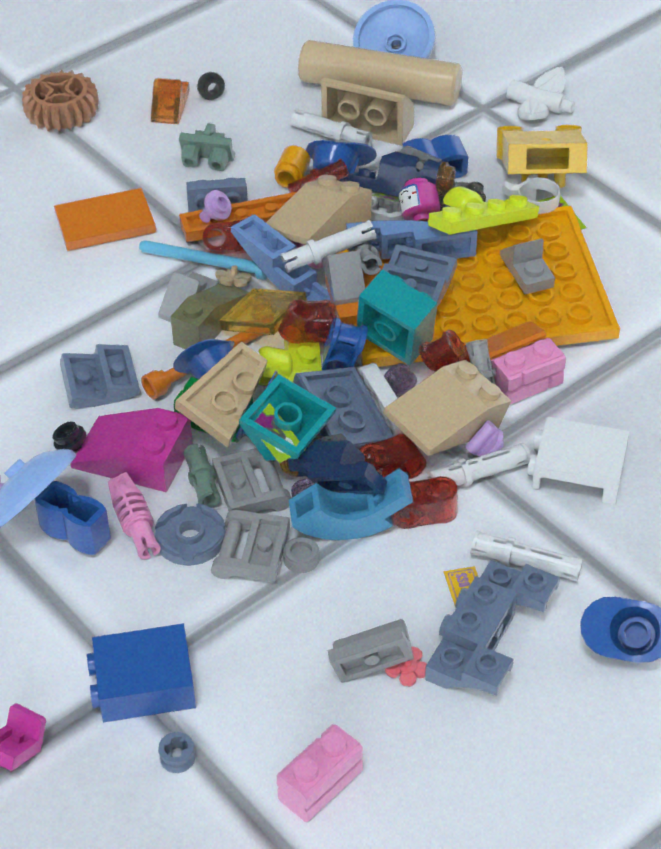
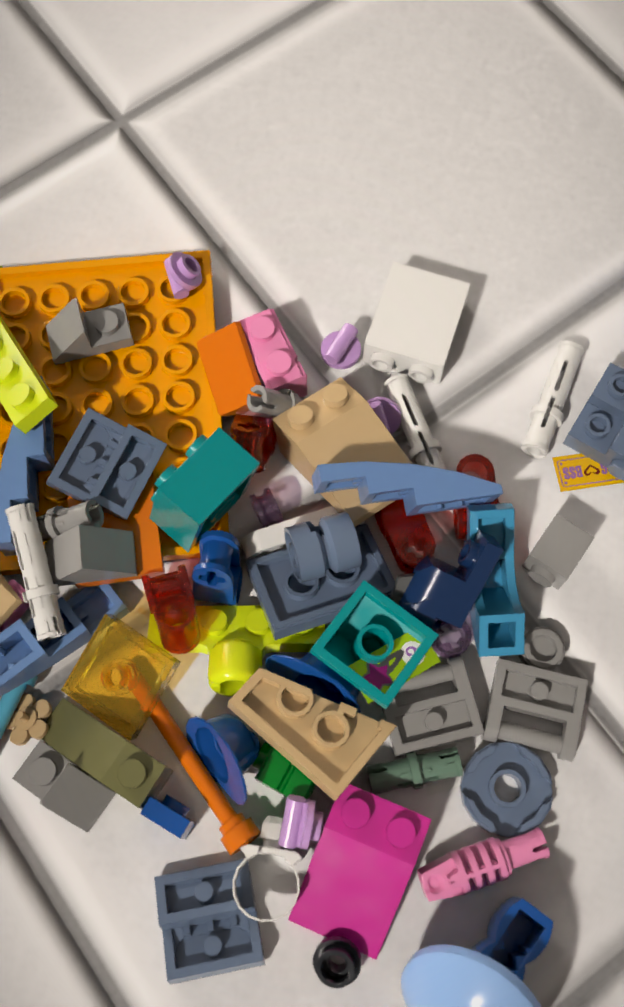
camera: 85 degrees left, 25 degrees up
(146, 398) = (270, 834): none -> white piece
(162, 398) = (300, 823): none -> lavender plate
(166, 345) = (169, 815): none -> blue plate
(362, 391) = (321, 547): none -> sand blue wheel
(382, 555) = (557, 553): none -> light grey brick
(412, 431) = (420, 487): none -> medium blue slope
(542, 410) = (341, 348): none -> lavender plate
(589, 308) = (183, 274): none -> lavender plate

